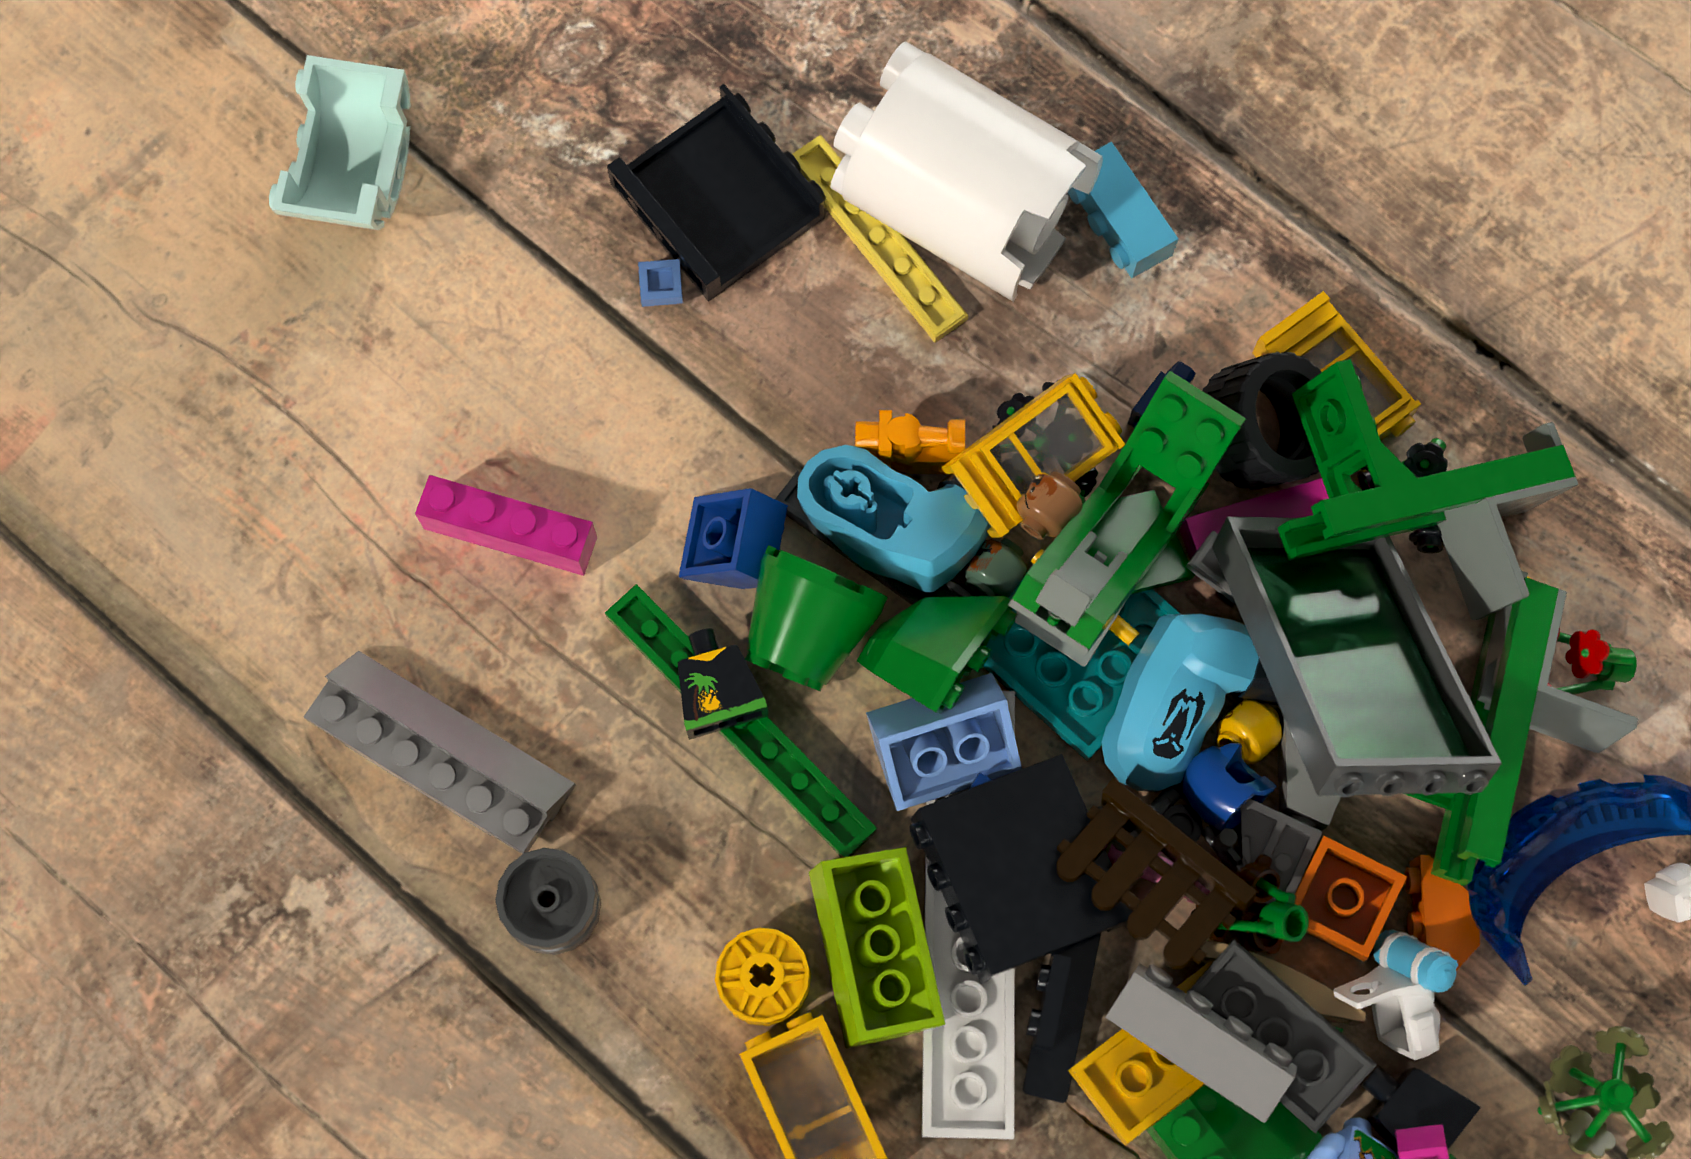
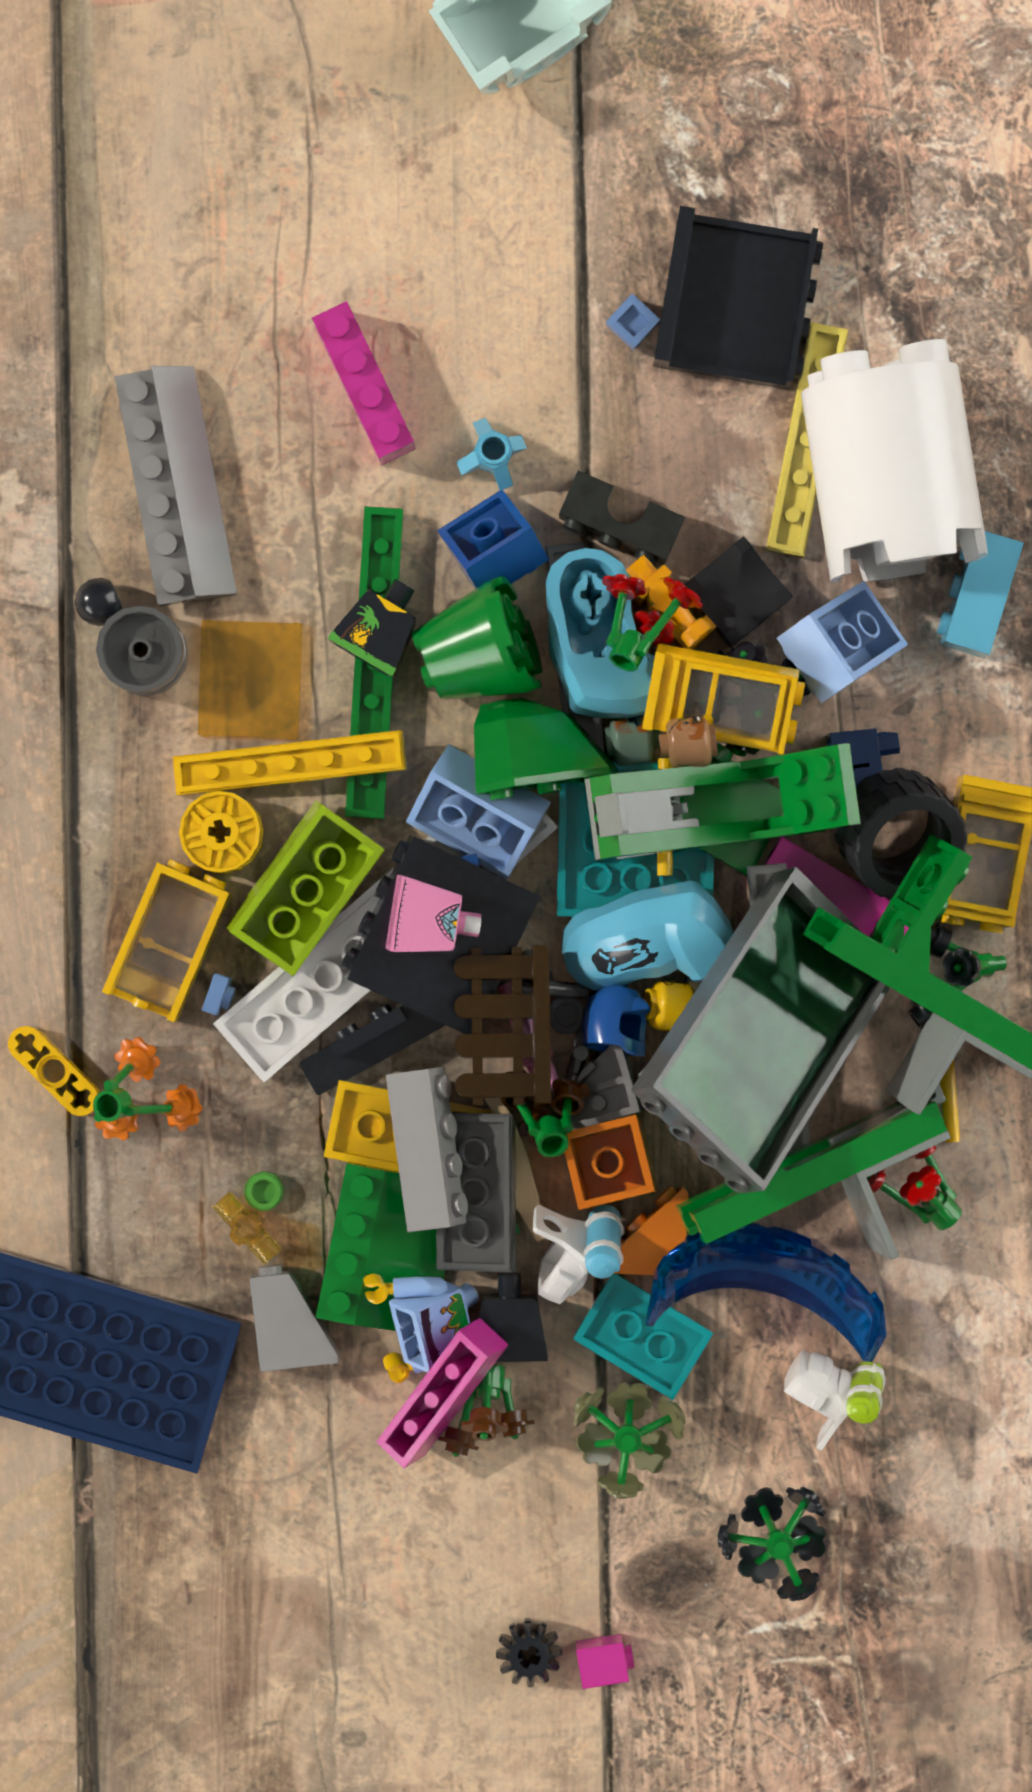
camera: 50 degrees right, 15 degrees up
(471, 903) = (97, 601): none -> black piece
(656, 838) = (250, 679): none -> clear yellow piece
(659, 476) = (492, 453): none -> medium azure rock
(757, 865) = (289, 763): none -> yellow tile
(778, 442) = (588, 511): none -> pearl dark grey arch
(901, 1107) = (219, 994): none -> medium blue plate
(921, 465) = (651, 627): none -> plant
(951, 384) = (738, 592): none -> black brick
(999, 856) = (427, 918): none -> bright pink torso
(1069, 333) = (841, 641): none -> light blue brick
(1507, 1020) = (655, 1354): none -> teal plate

